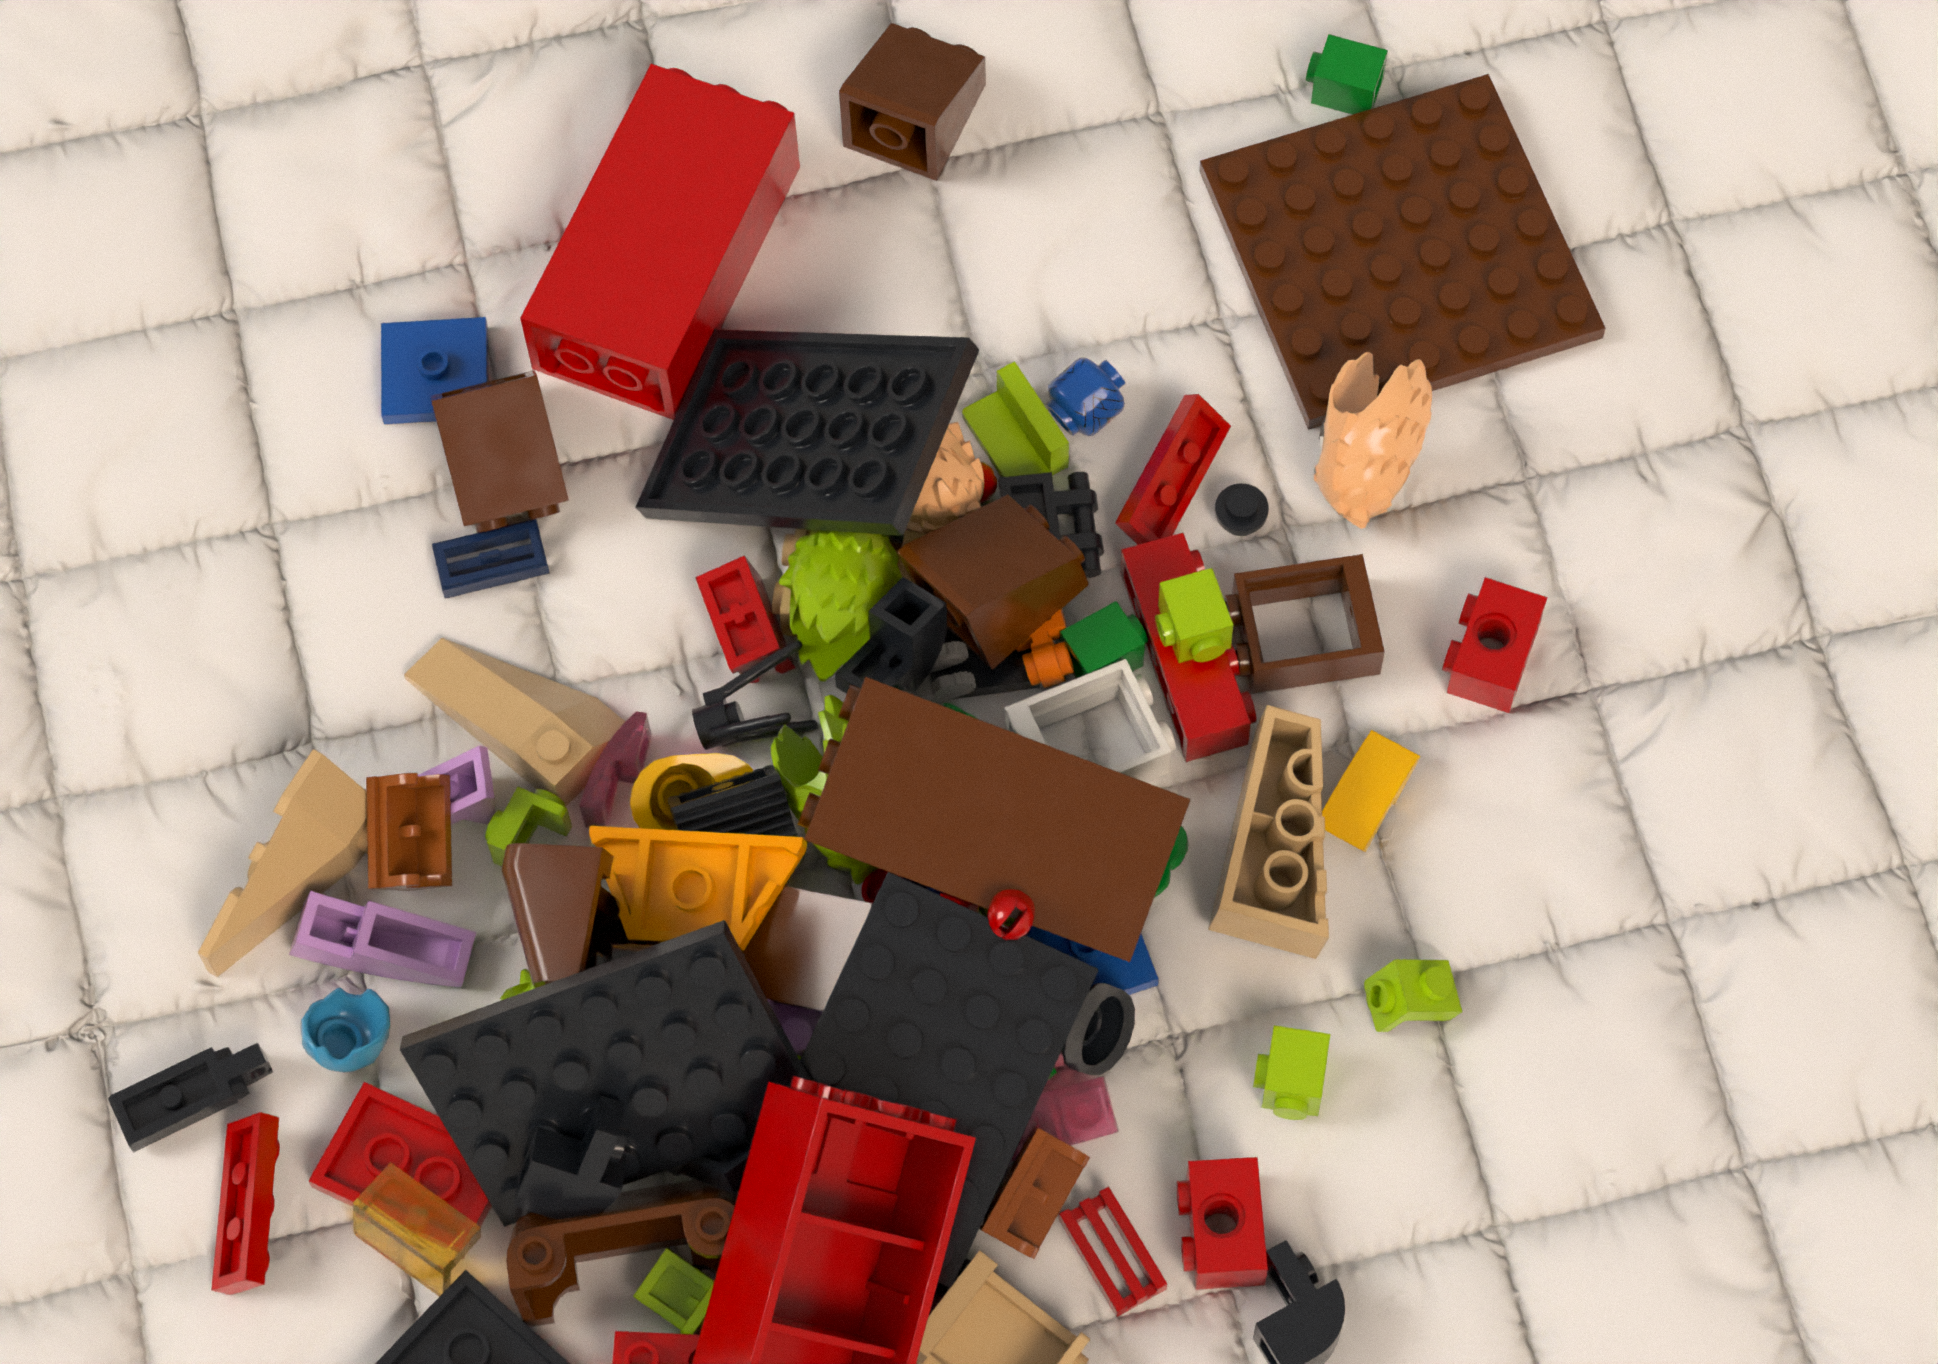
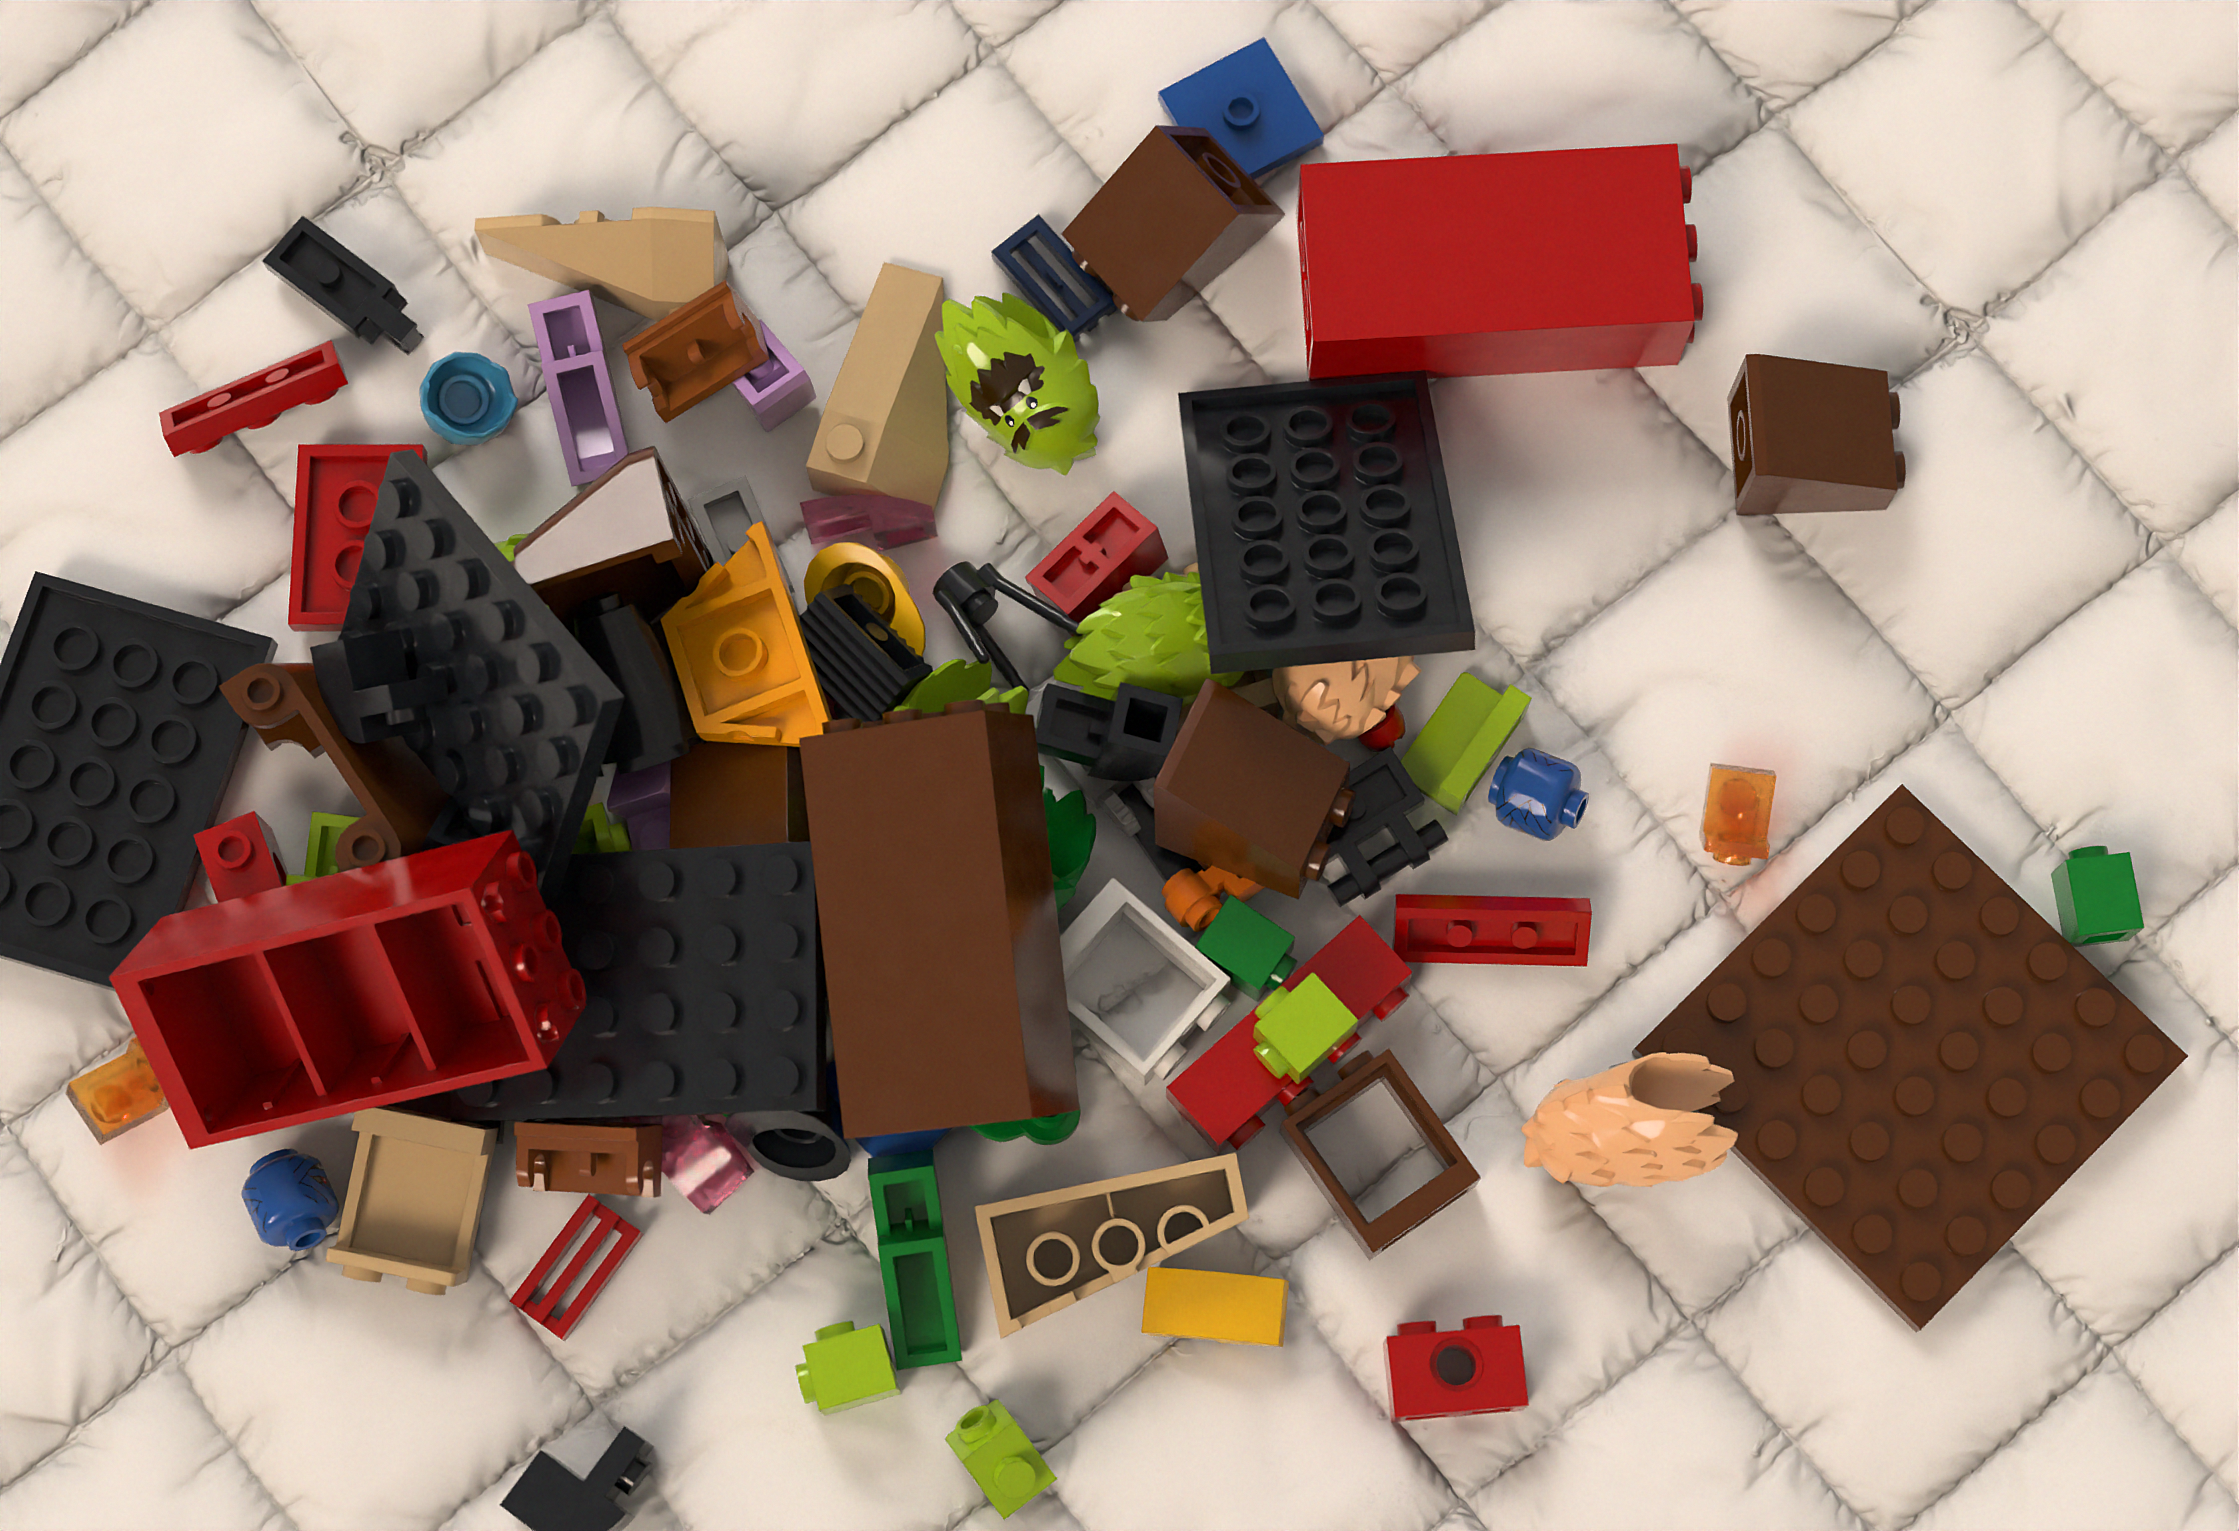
camera: 65 degrees right, 10 degrees up
(413, 1228) = (293, 567): clear yellow panel -> none
(522, 818) = (760, 451): lime bracket -> none
(571, 604) = (1020, 381): none -> lime head
(1001, 908) = (825, 977): red hinge -> none
(1168, 274) = (1737, 813): none -> clear orange bracket
(1225, 985) = (914, 1259): none -> green slope
(1232, 1190) = (688, 1370): red brick -> none
(1241, 509) = (1489, 1022): black plate -> none

